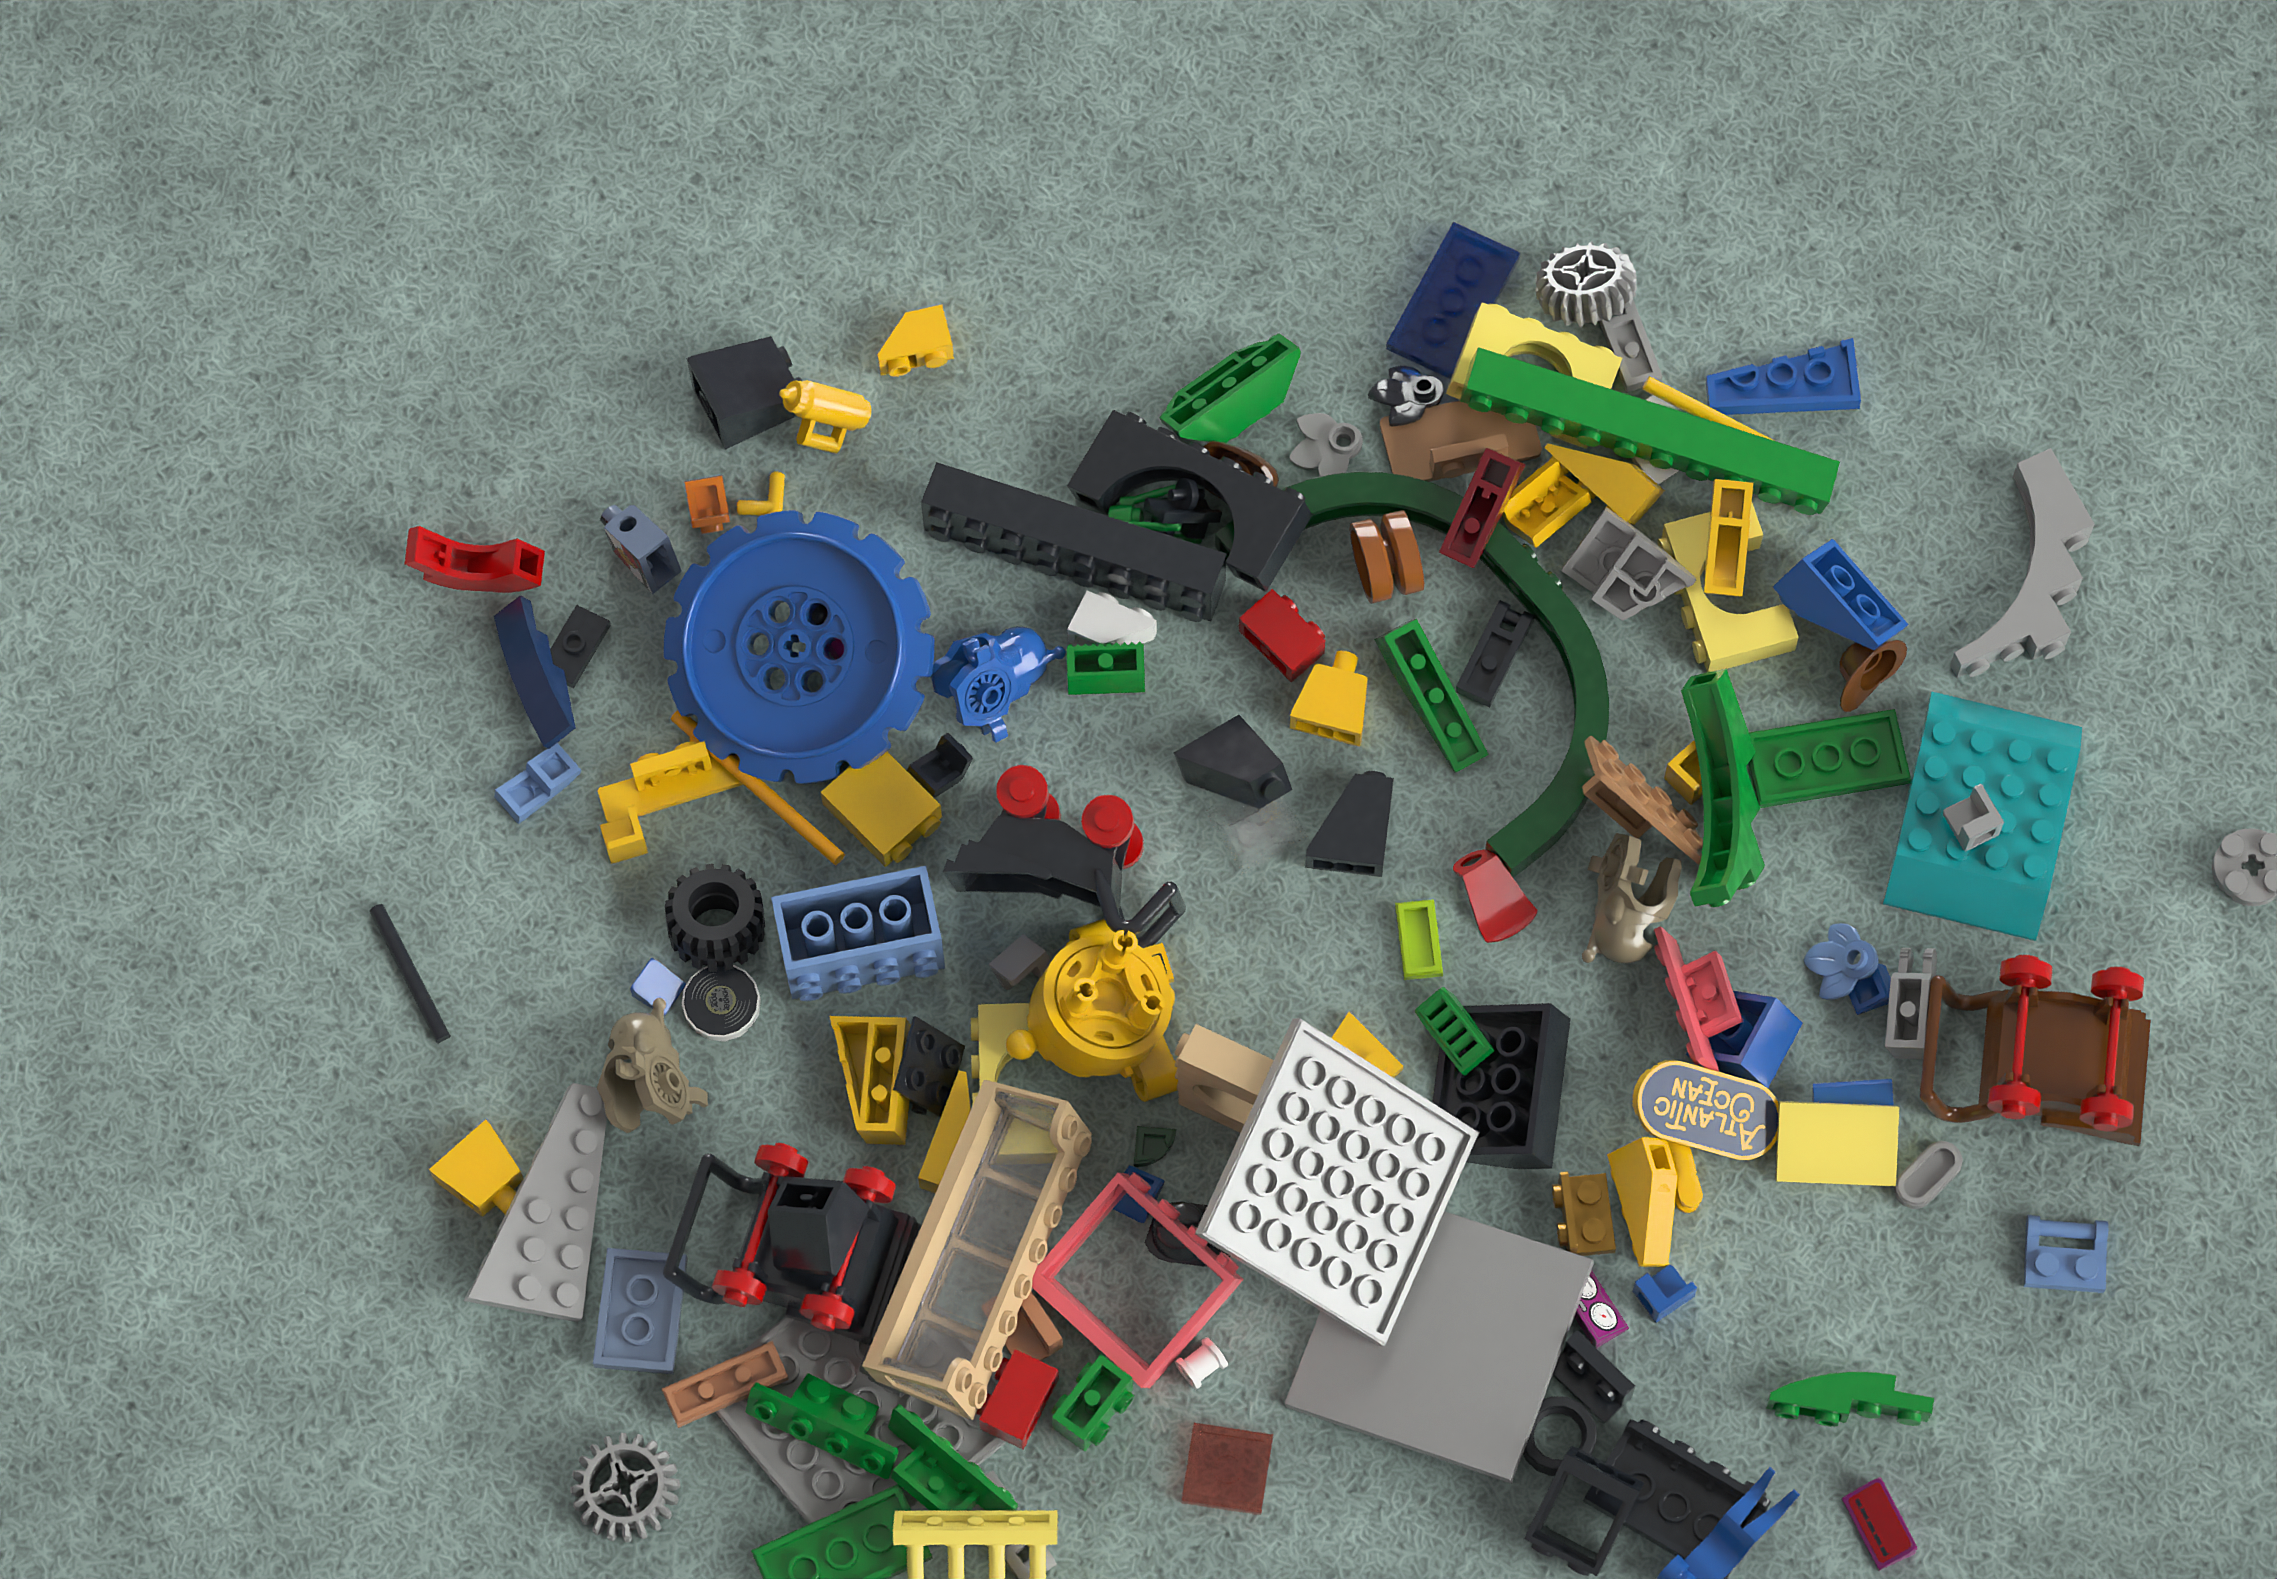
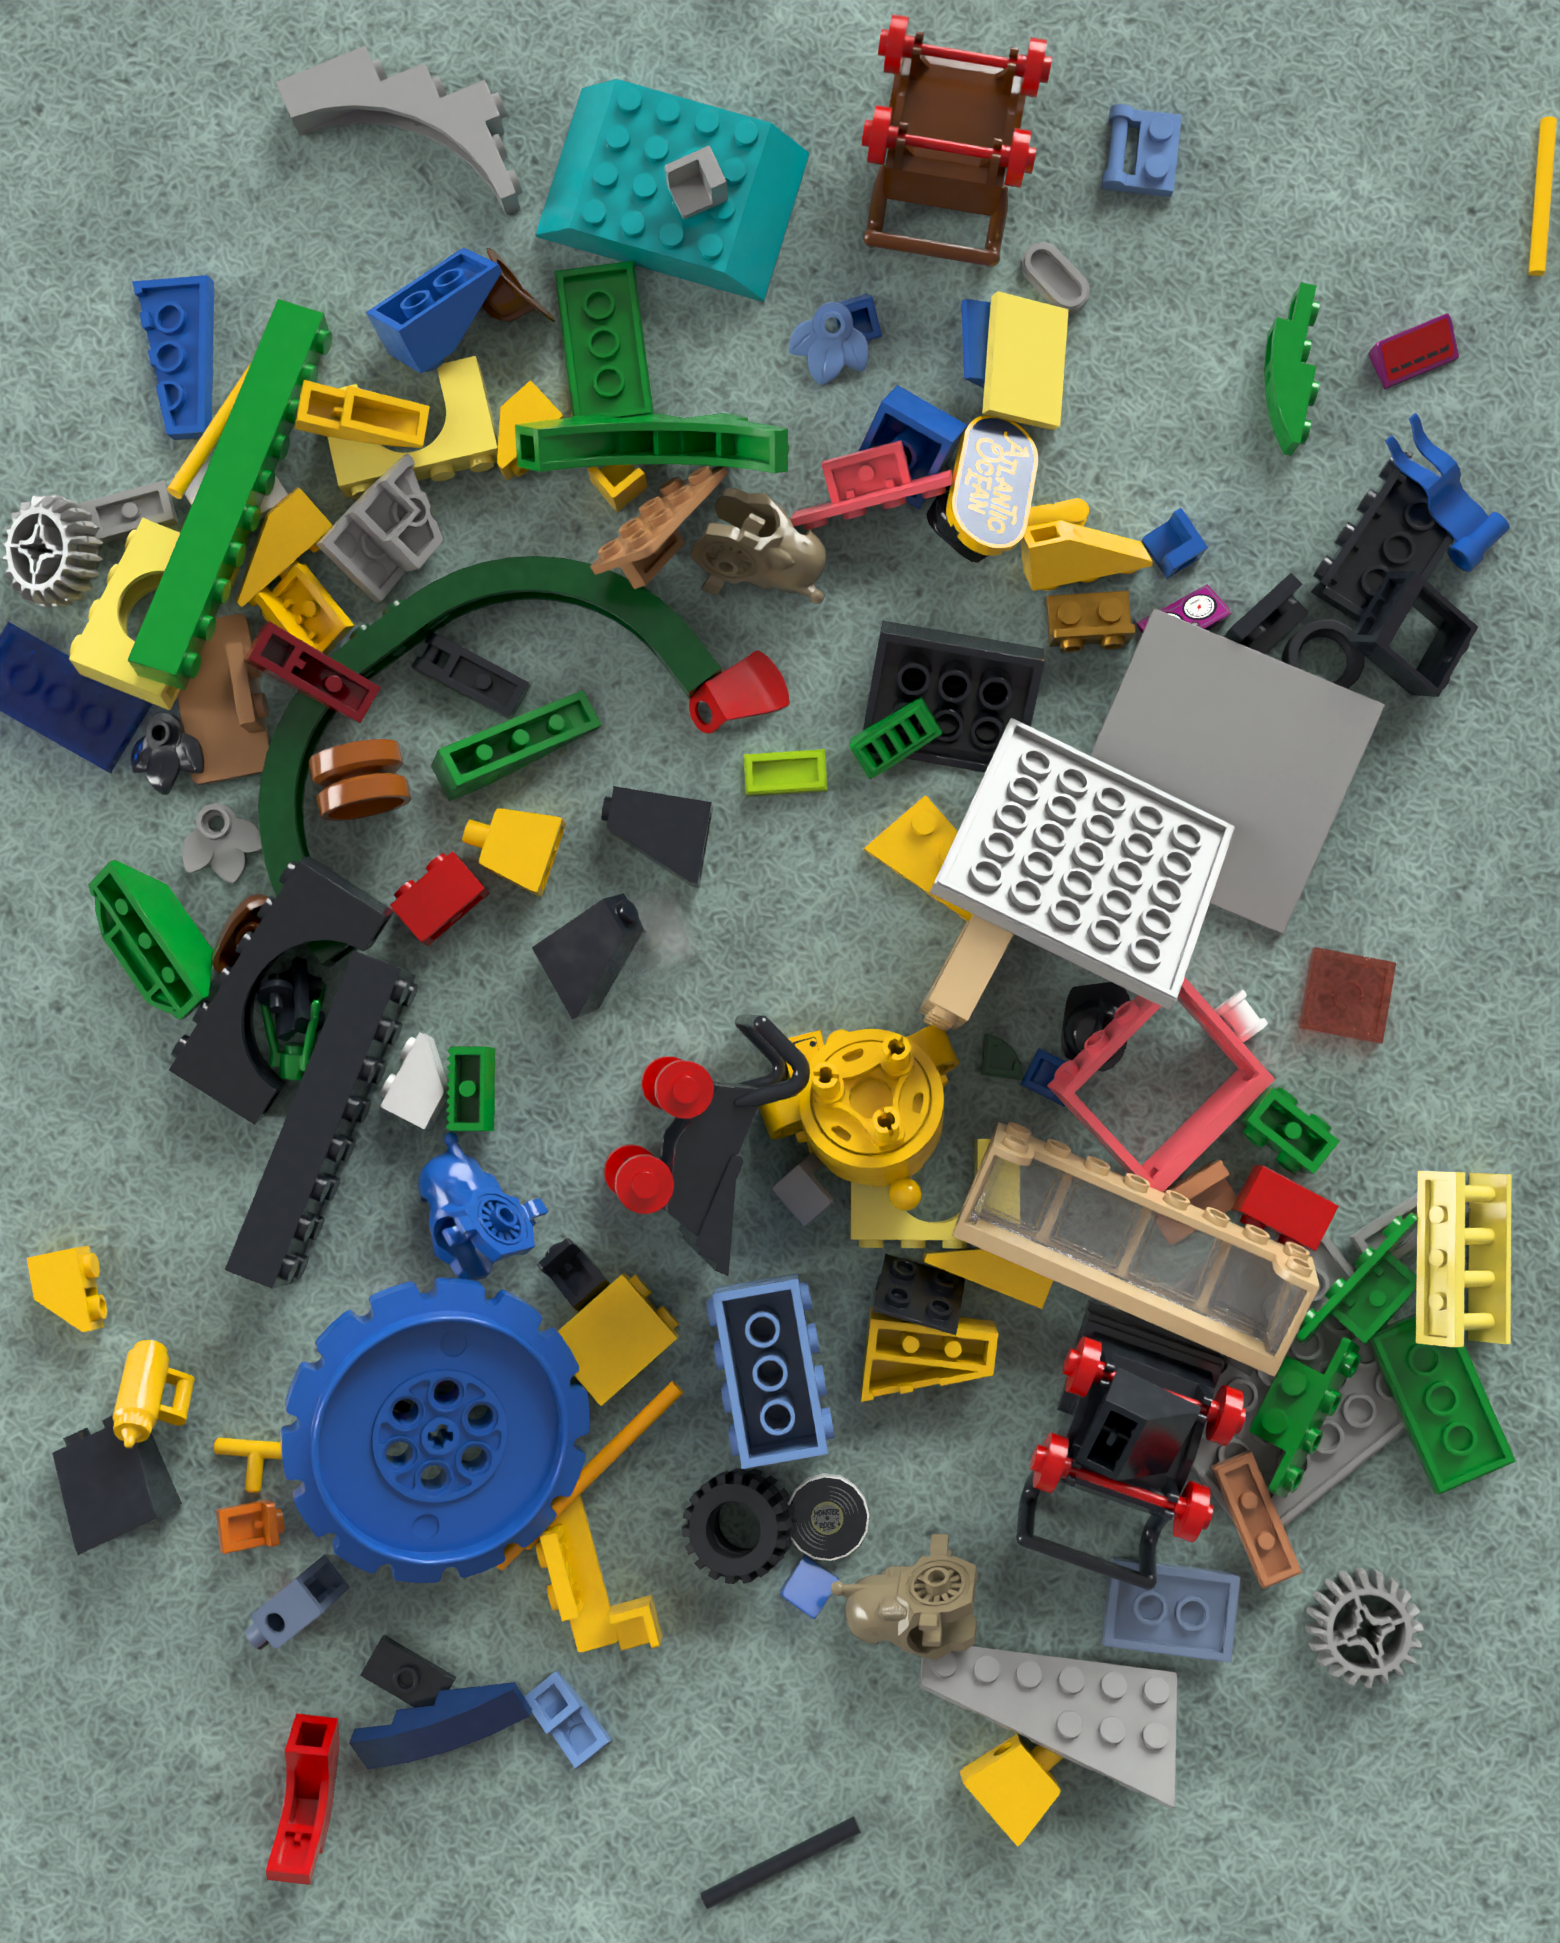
camera: 85 degrees left, 15 degrees up
(1750, 685) = (523, 407): none -> yellow slope
(1909, 1005) = (885, 272): light grey hinge -> none

